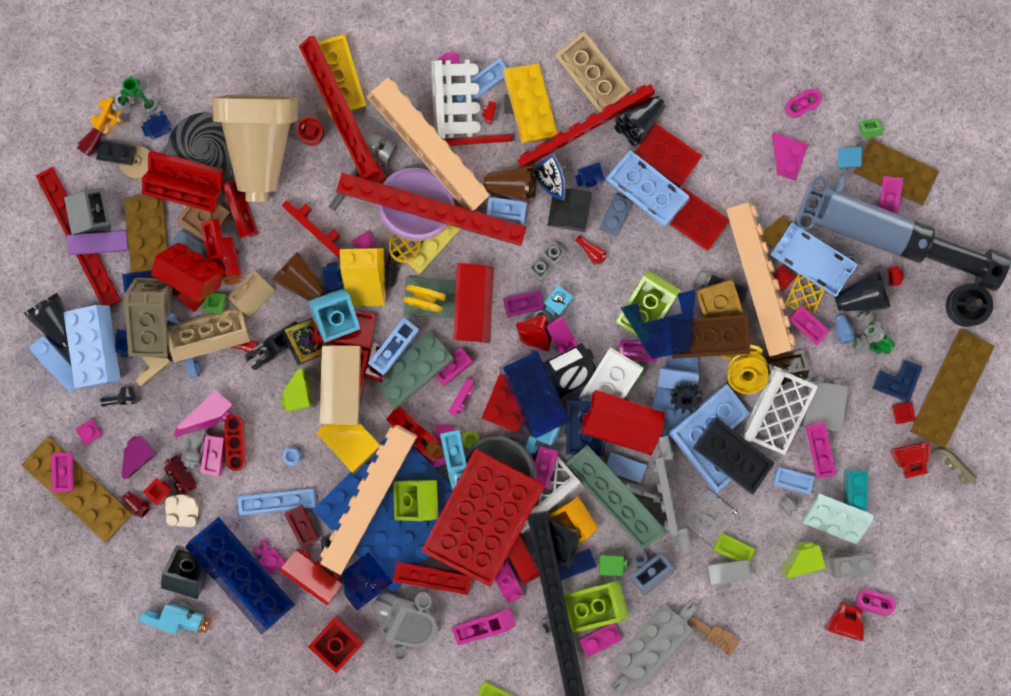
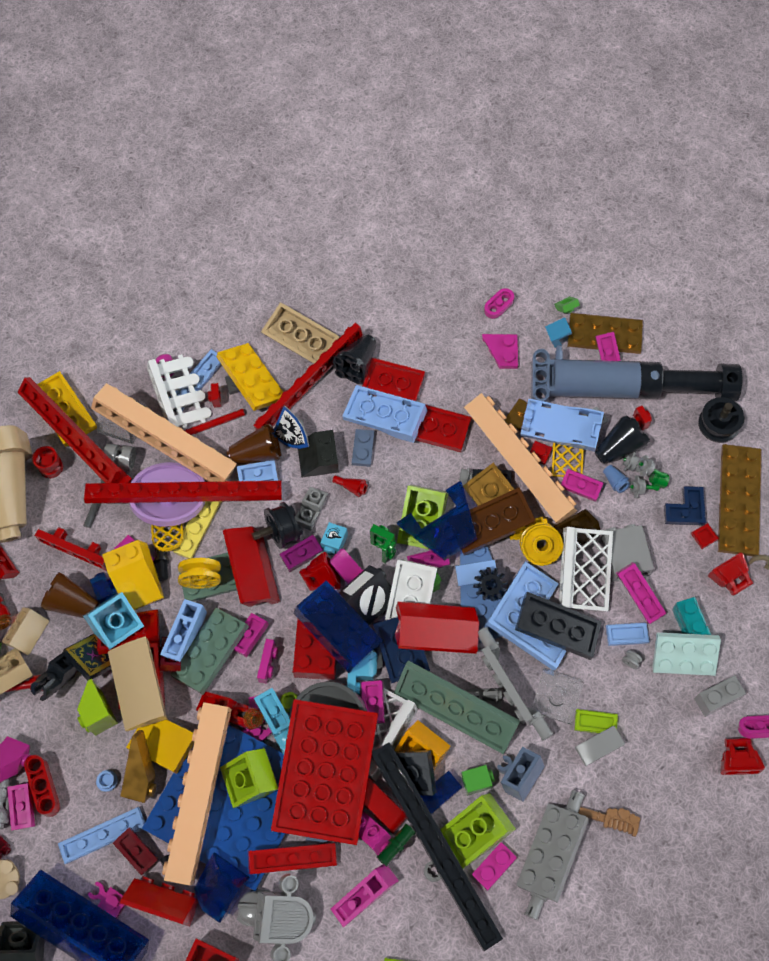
camera: 15 degrees left, 20 degrees down
(322, 462) = (139, 771): none -> pearl gold slope
(512, 273) = (280, 525): none -> black wheel
(523, 598) = (396, 845): none -> dark green pin
(590, 175) = (327, 419): clear blue brick -> none
(602, 316) = (384, 540): none -> green bracket
(626, 467) = (459, 676): light blue tile -> none
(803, 560) = (671, 703): lime slope -> none

